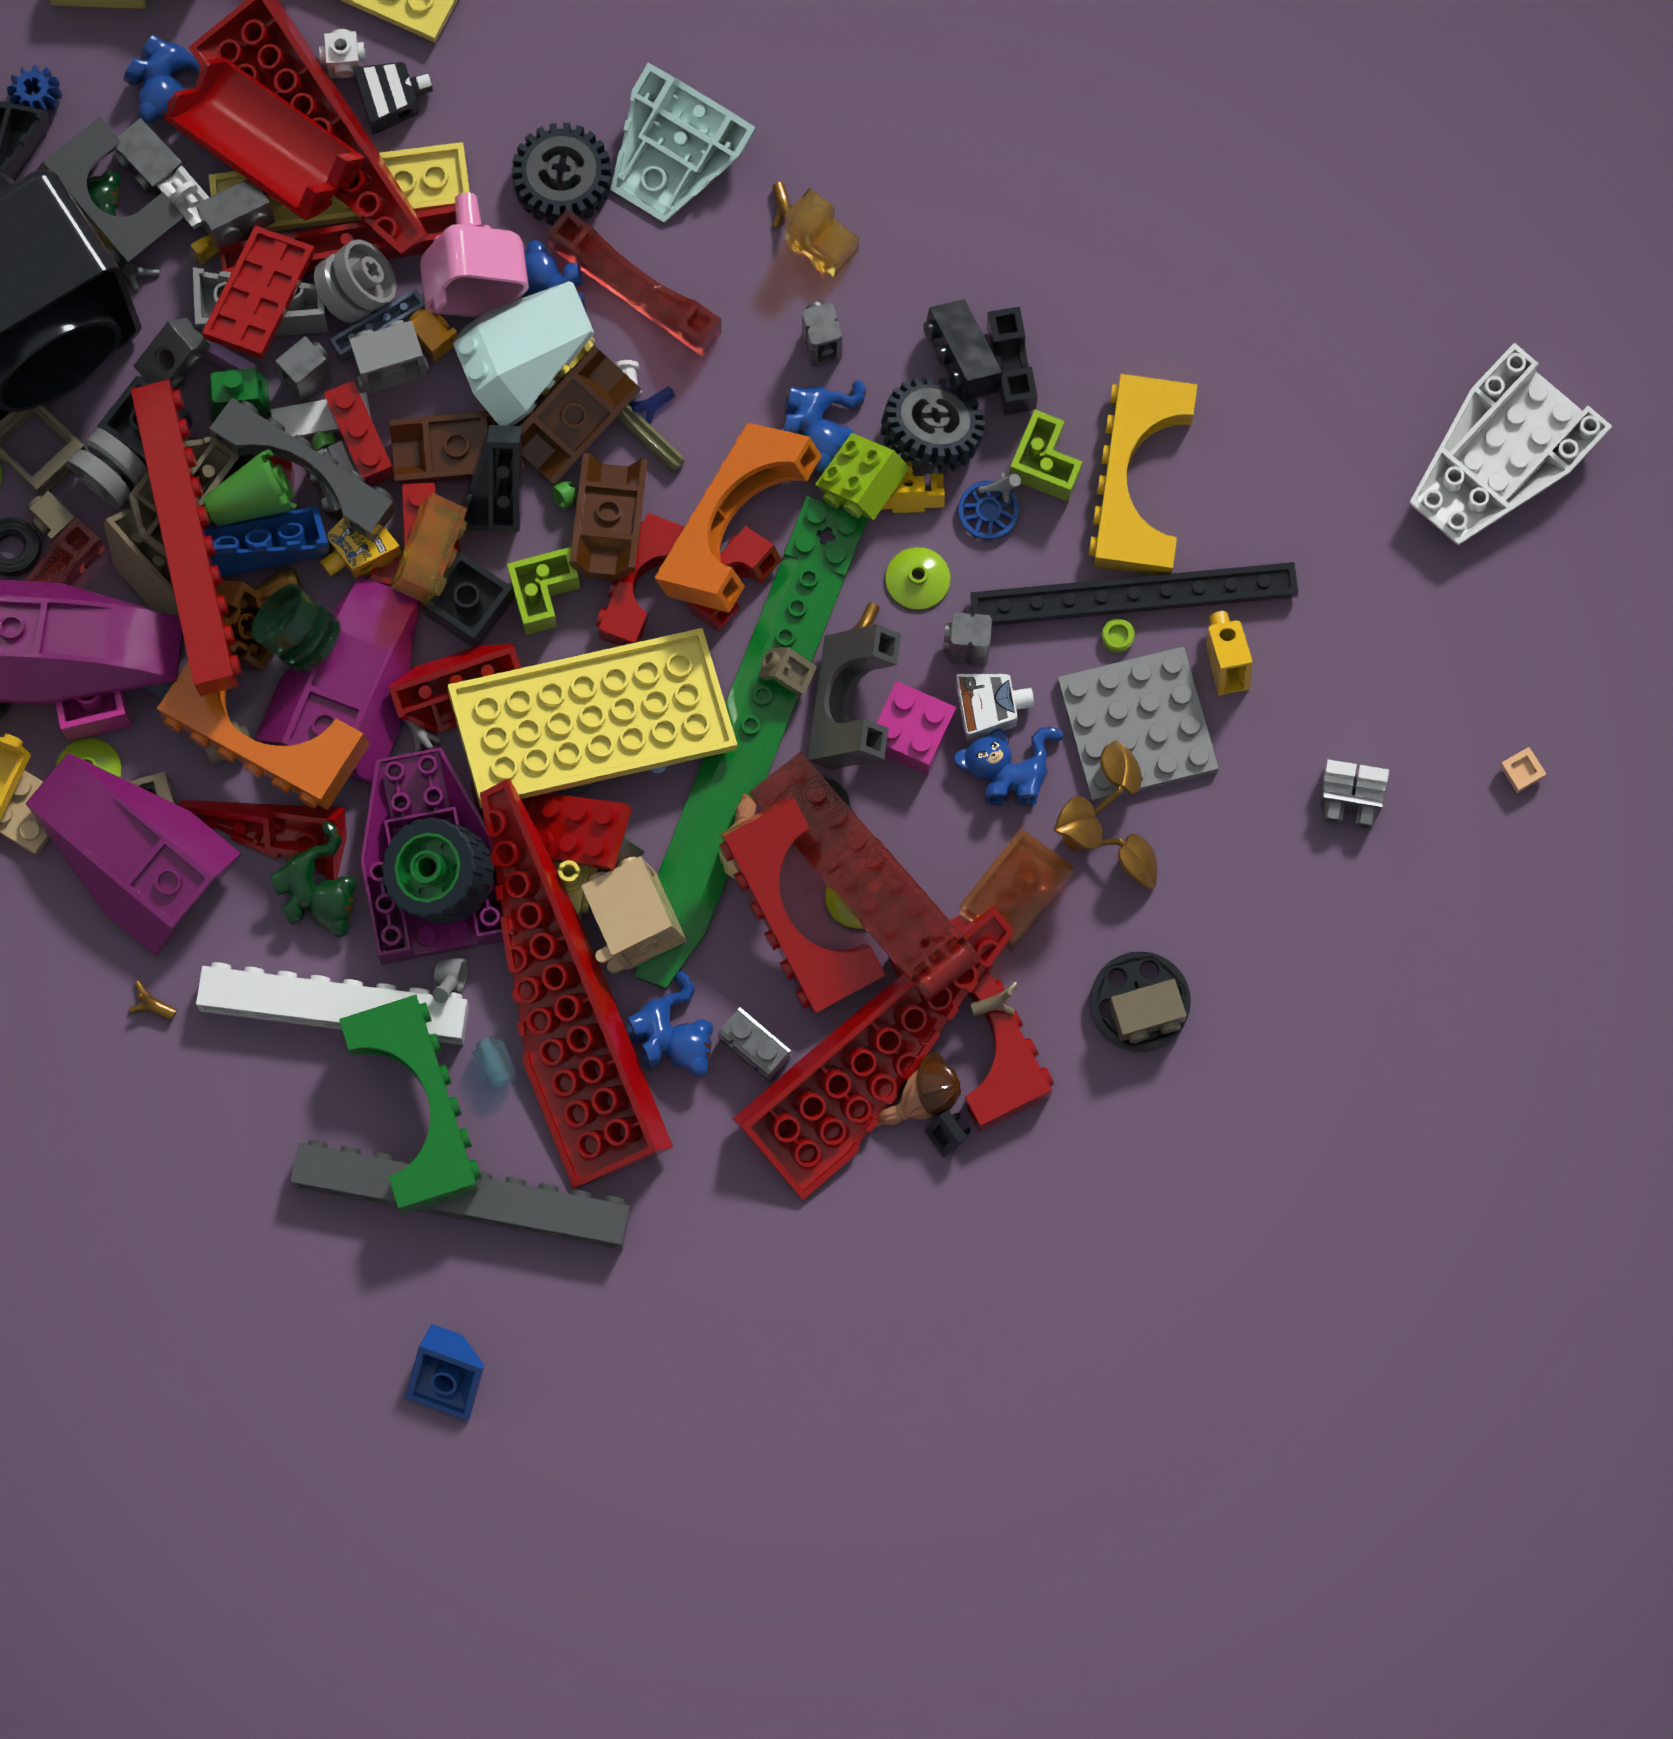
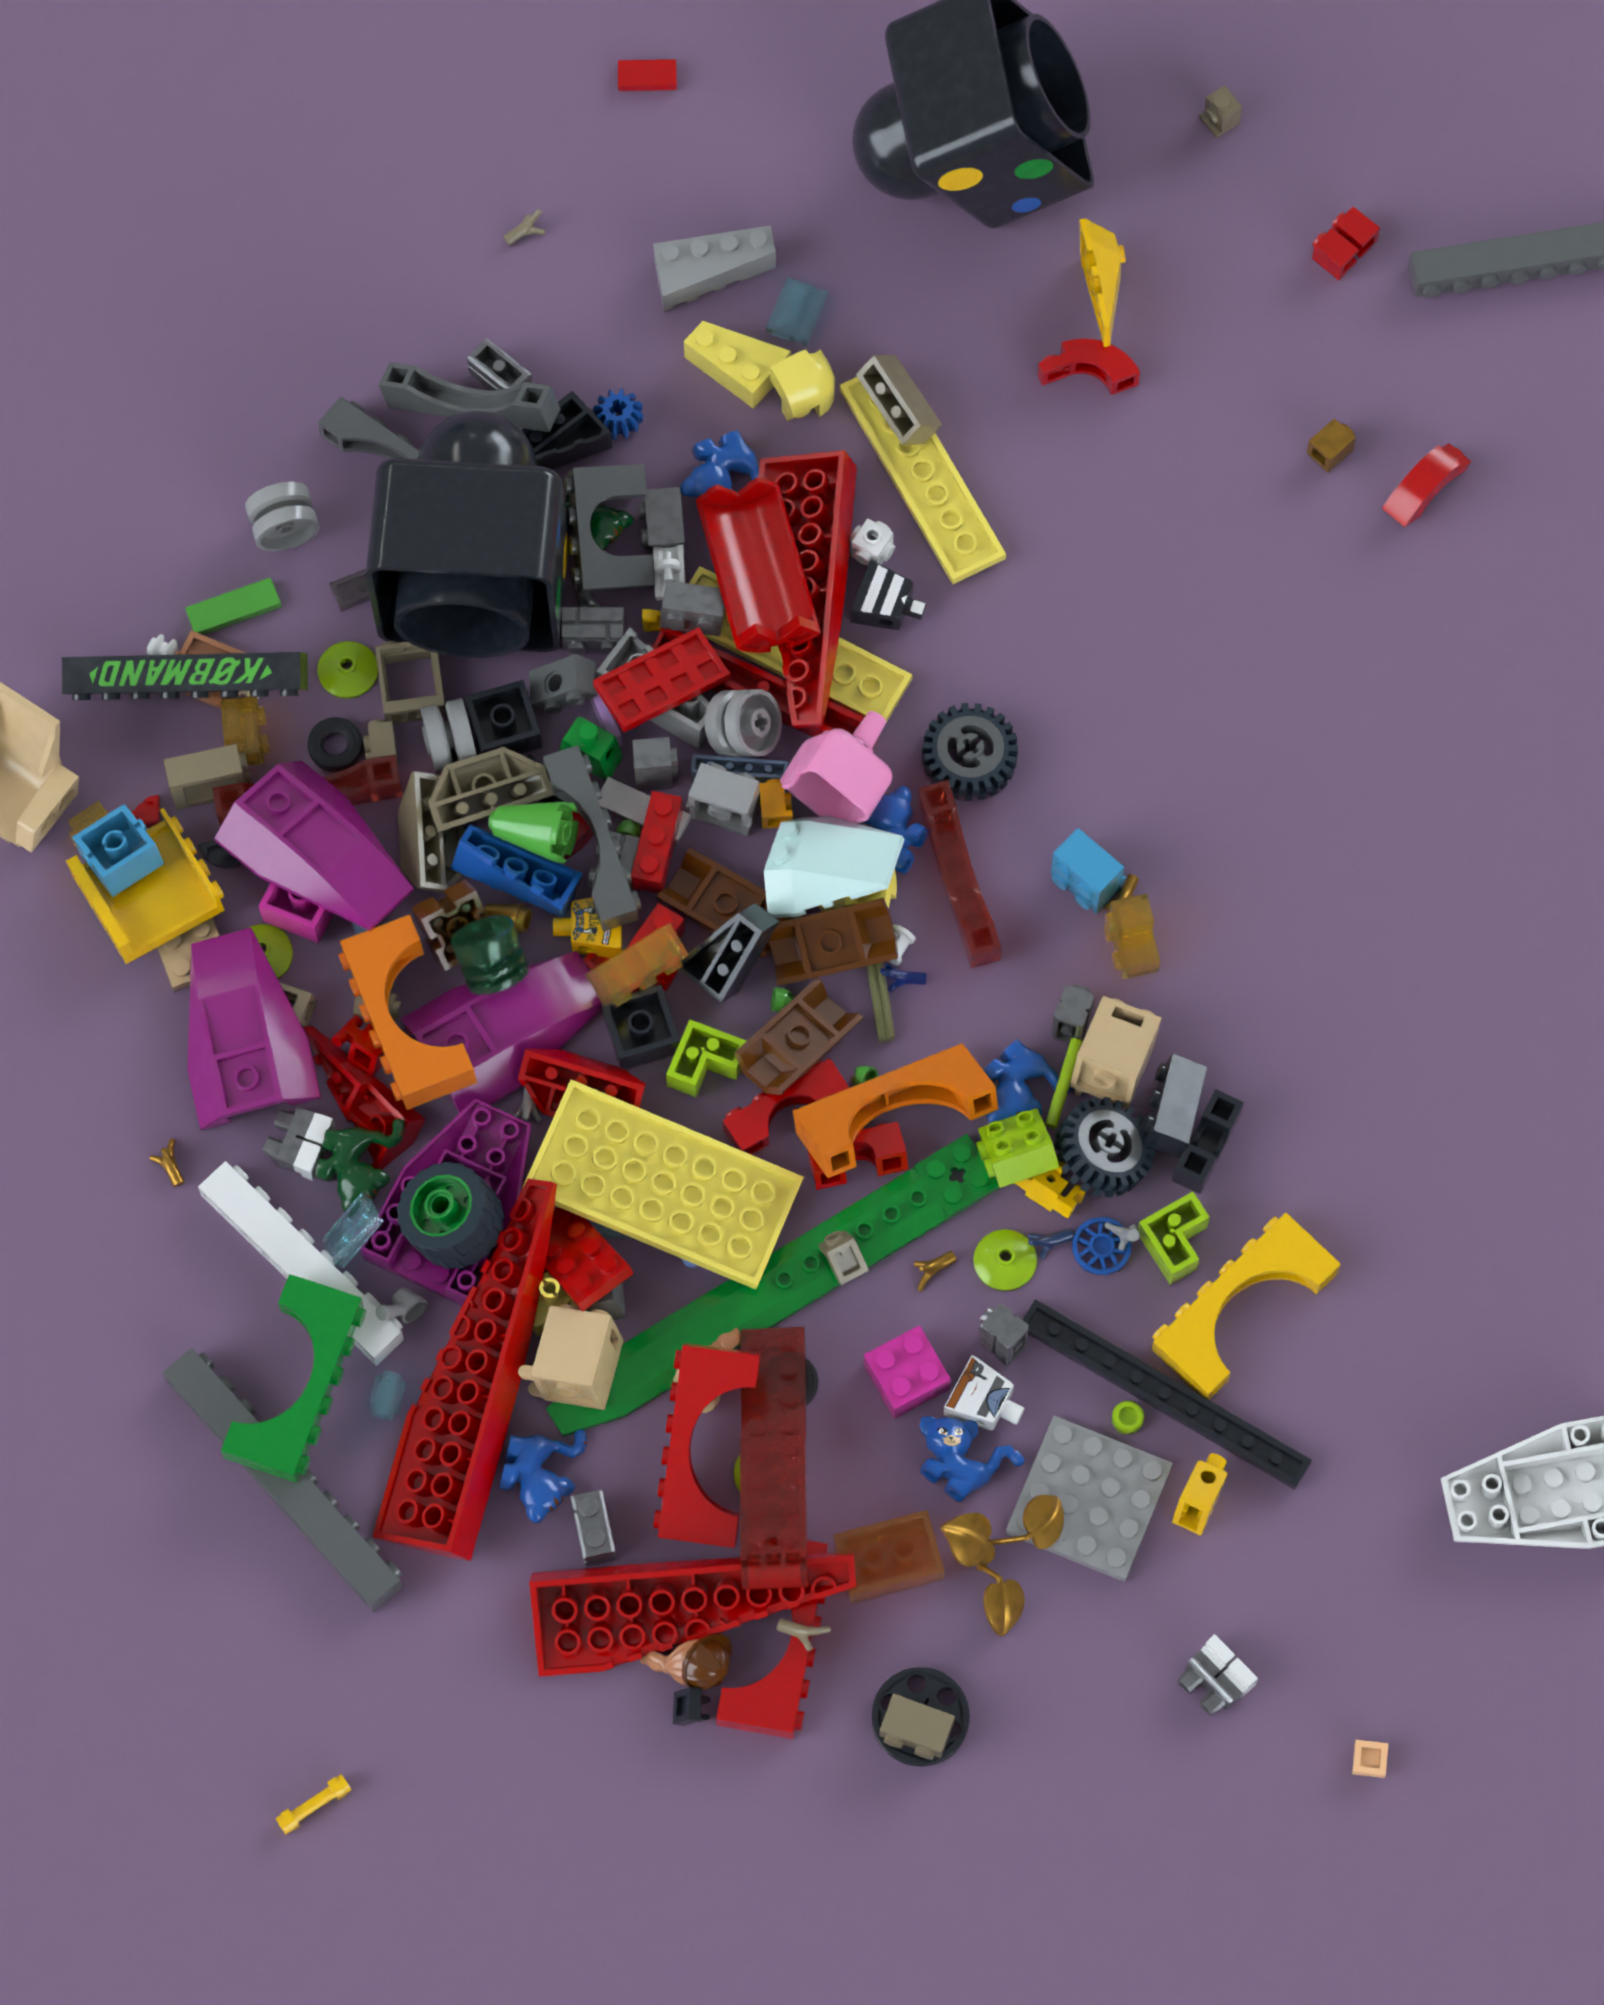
camera: 40 degrees right, 5 degrees down
(161, 292) = (591, 628): none -> flat silver brick
(185, 538) = (457, 826): red brick -> none
(247, 788) = (362, 1050): none -> red brick
(255, 903) = (302, 1142): none -> hips
(358, 945) = (352, 1230): none -> clear light blue plate
(445, 1373) = (164, 1604): blue slope -> none
(674, 144) = (1074, 785): light aqua wedge -> none
(684, 508) = (863, 1074): none -> bright green hinge
(708, 1415) = (289, 1820): none -> yellow bar
(740, 205) = (1086, 871): none -> dark azure brick
(844, 661) = (896, 1281): dark grey arch -> none
(856, 396) = (1063, 1084): none -> lime bar
(881, 339) = (1115, 1051): none -> tan container
(943, 535) = (1050, 1240): none -> dark blue bar

